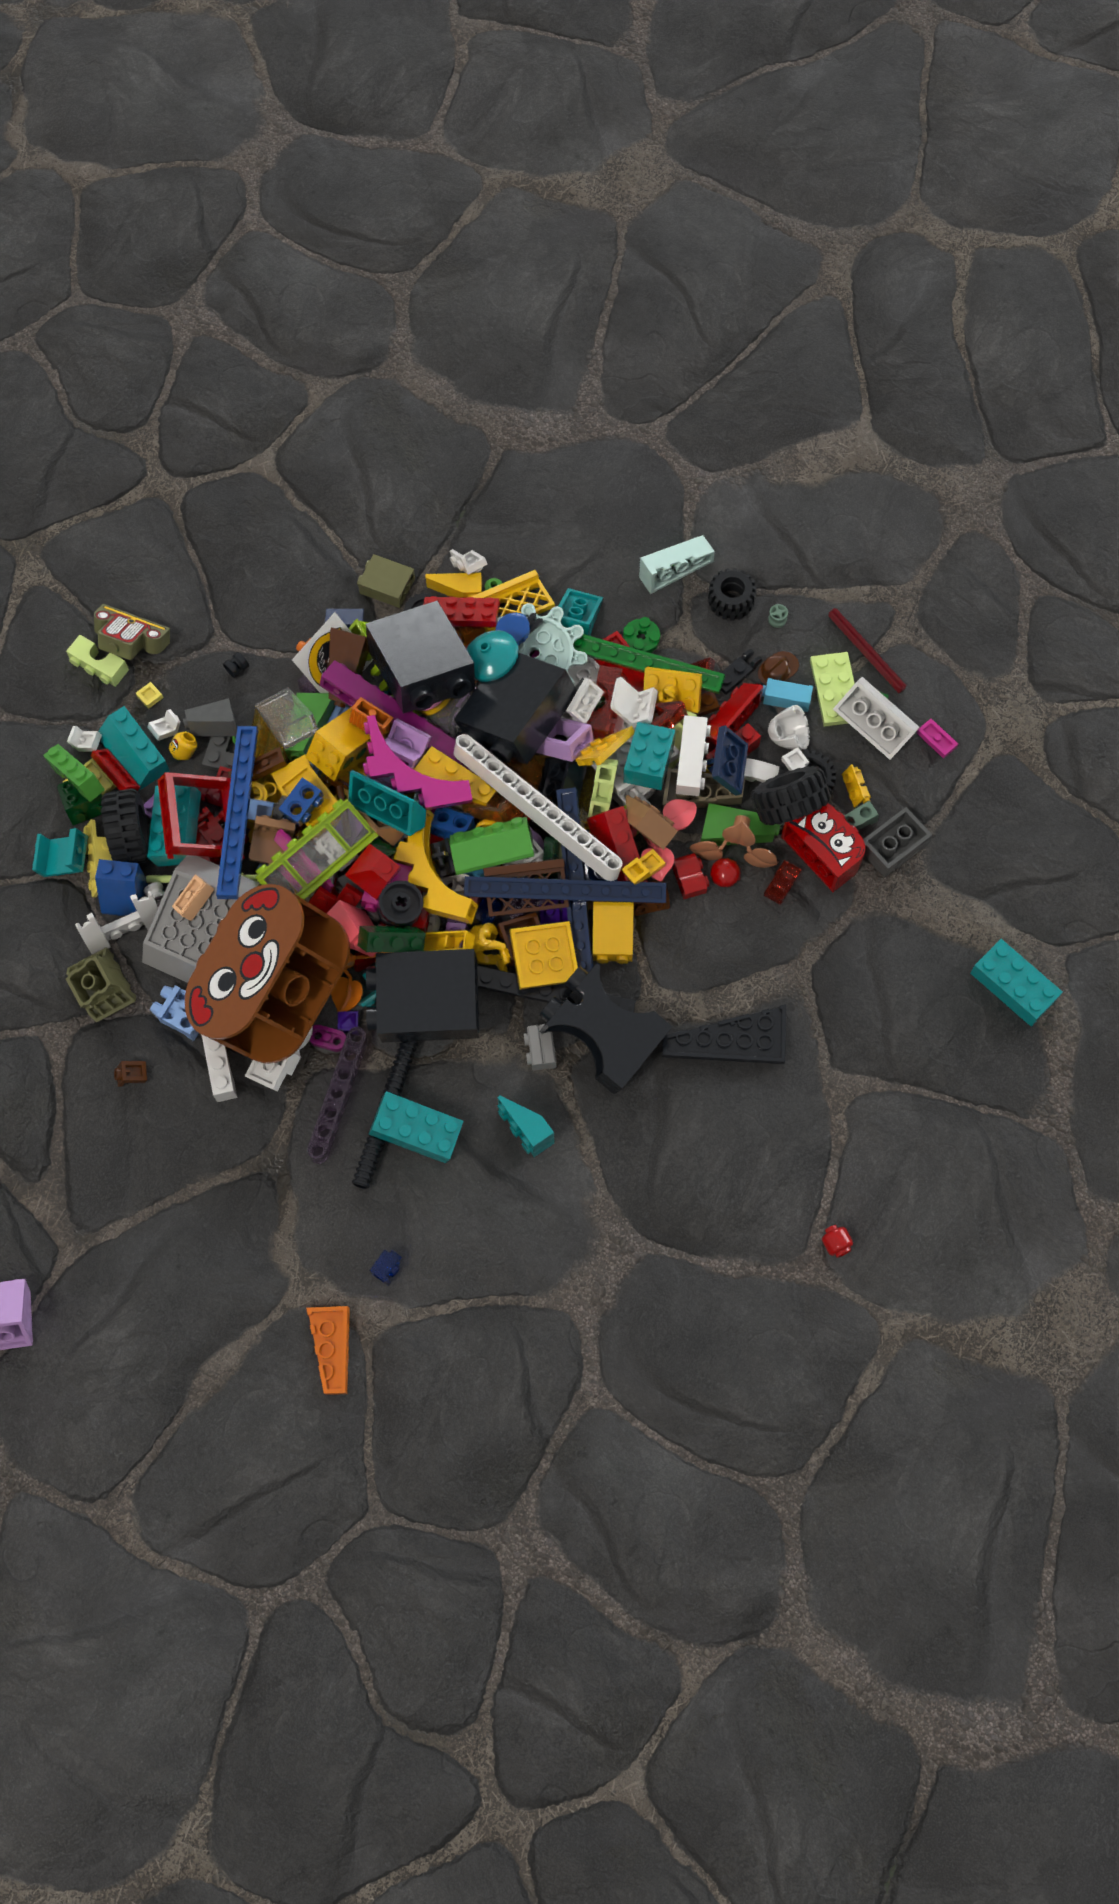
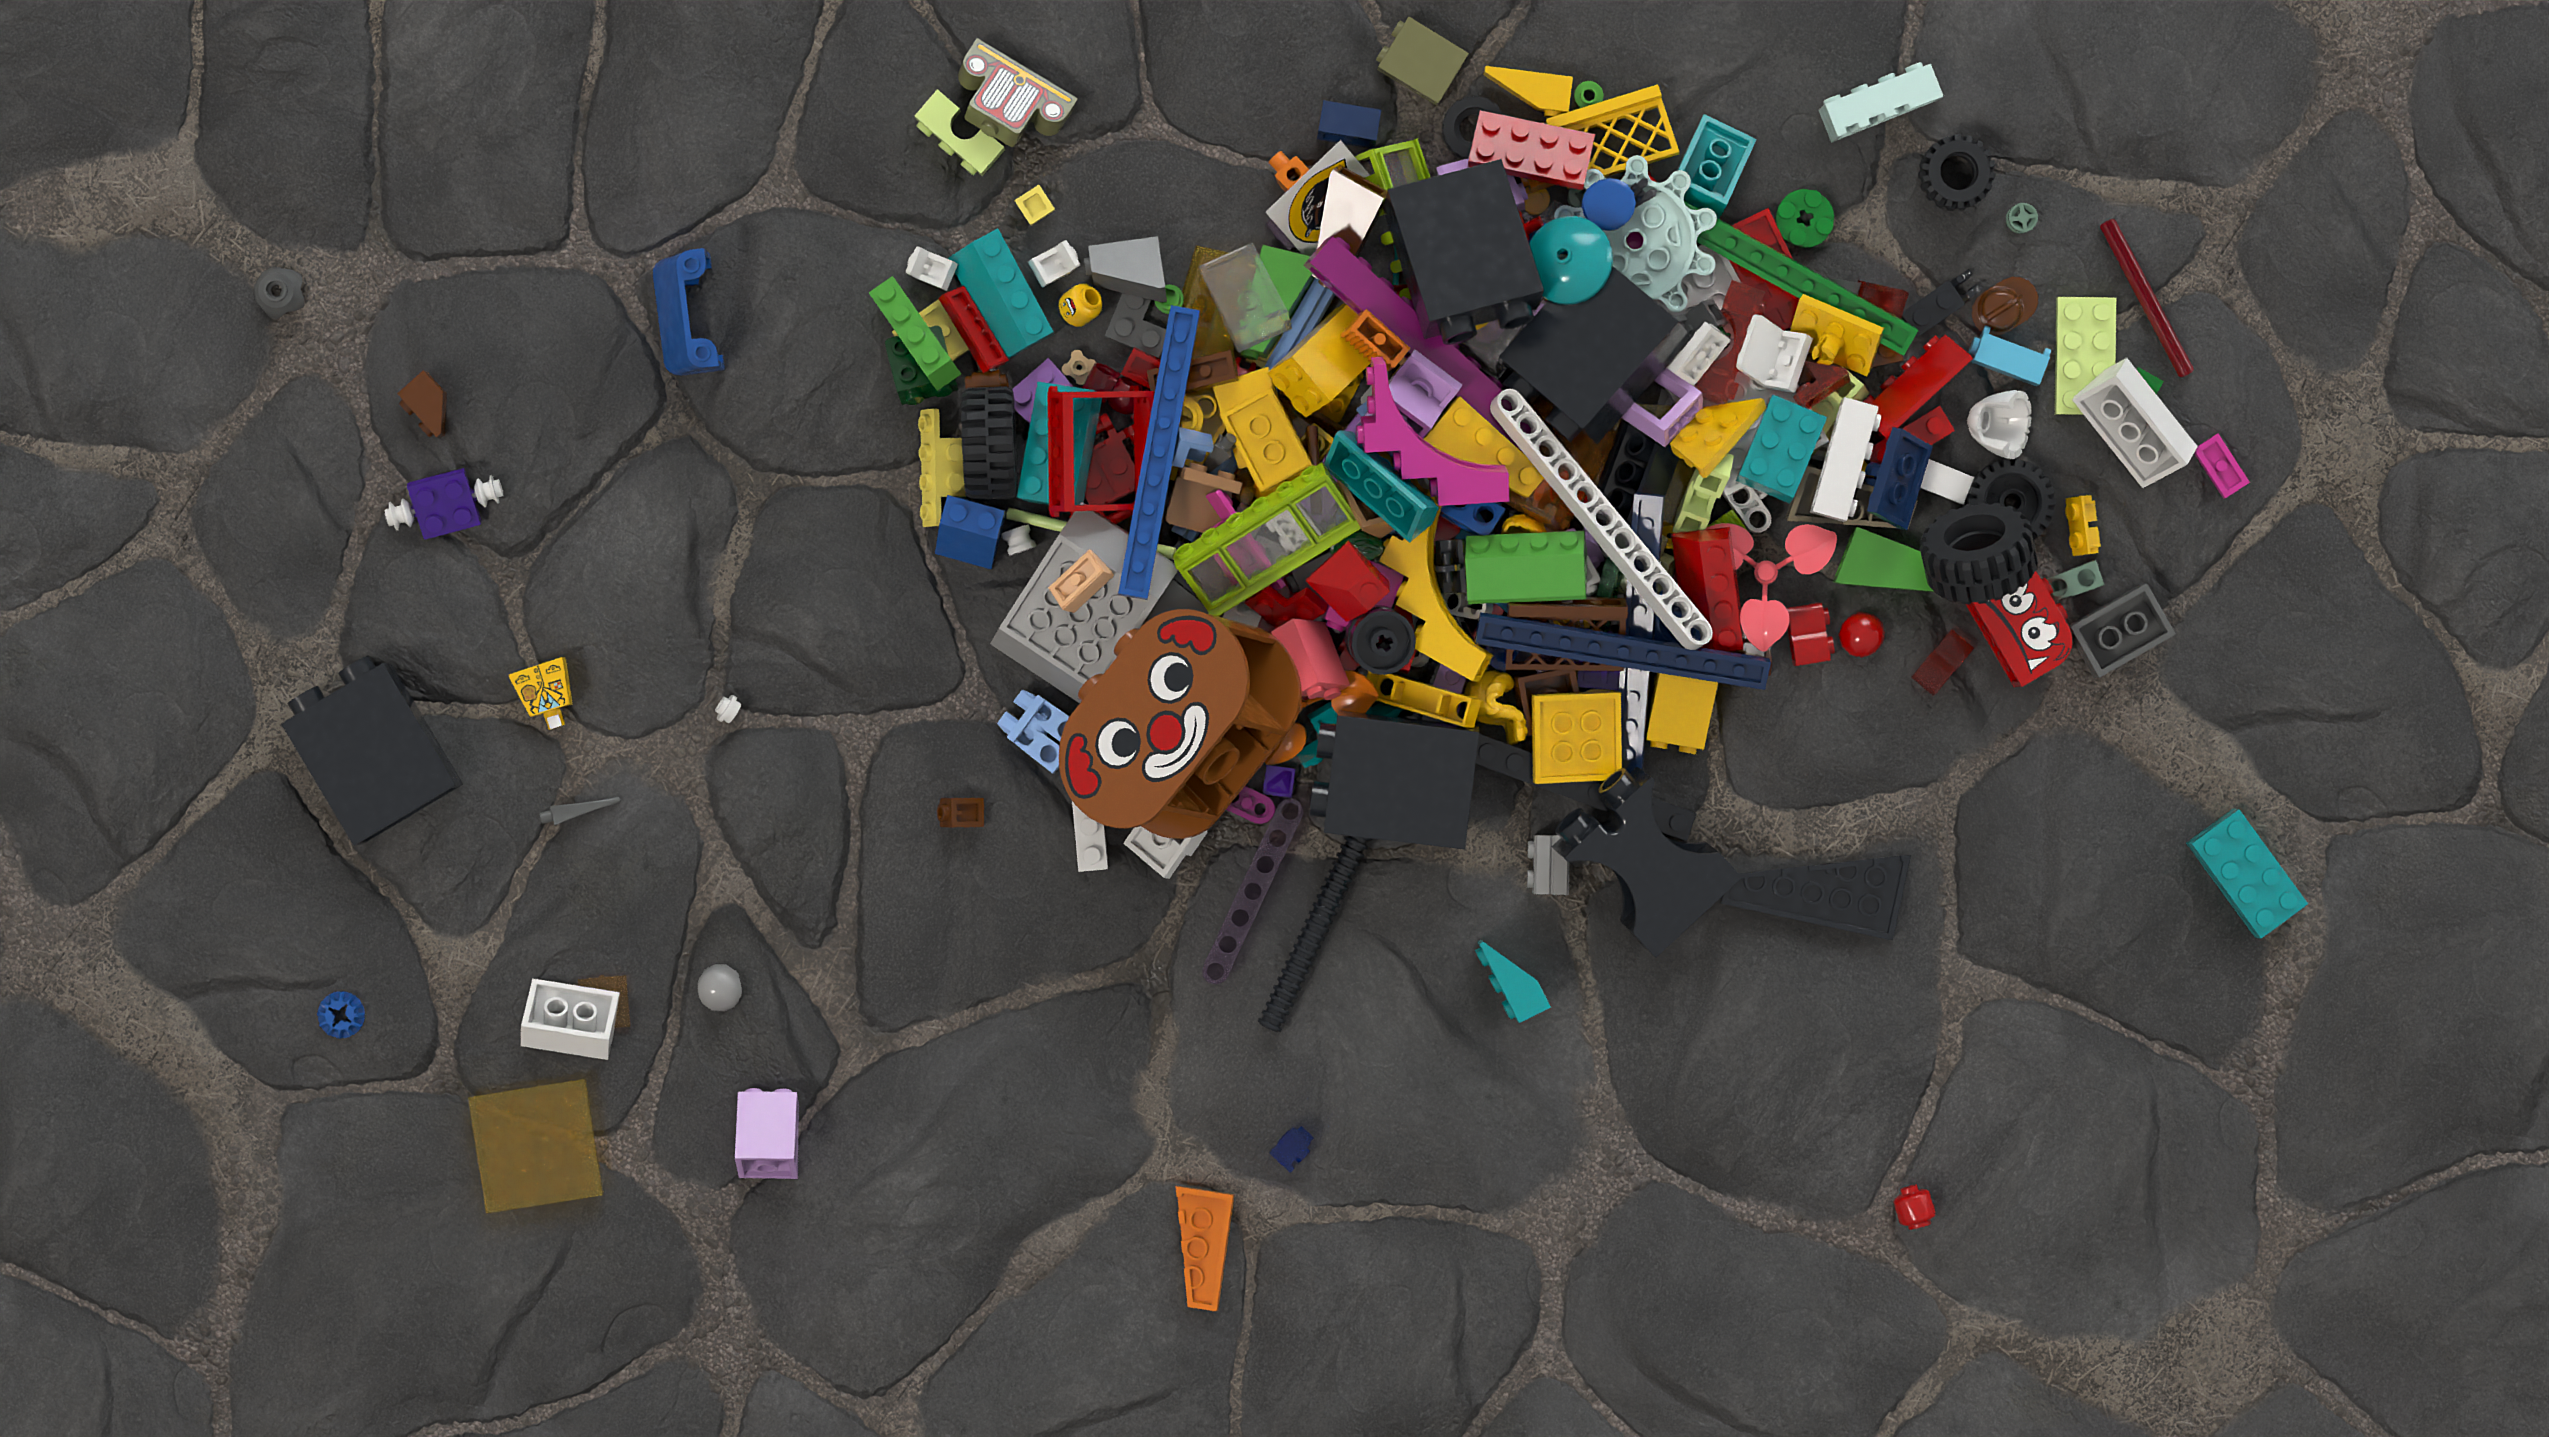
camera: 15 degrees right, 20 degrees up
(60, 855) = (883, 456): teal panel -> none
(98, 937) = (930, 599): white wedge -> none
(99, 985) = (926, 671): olive slope -> none
(236, 664) = (1172, 173): black wheel -> none
(297, 799) = (1250, 452): blue brick -> none
(391, 939) = (1362, 695): dark green brick -> none
(416, 1127) = (1358, 961): teal brick -> none
(468, 562) = (1556, 52): white bracket -> none
(643, 868) = (1742, 634): yellow slope -> none
(649, 821) = (1761, 561): medium nougat slope -> none
(739, 834) = (1894, 583): nougat plant -> none
(795, 759) = (1999, 483): white plate -> none

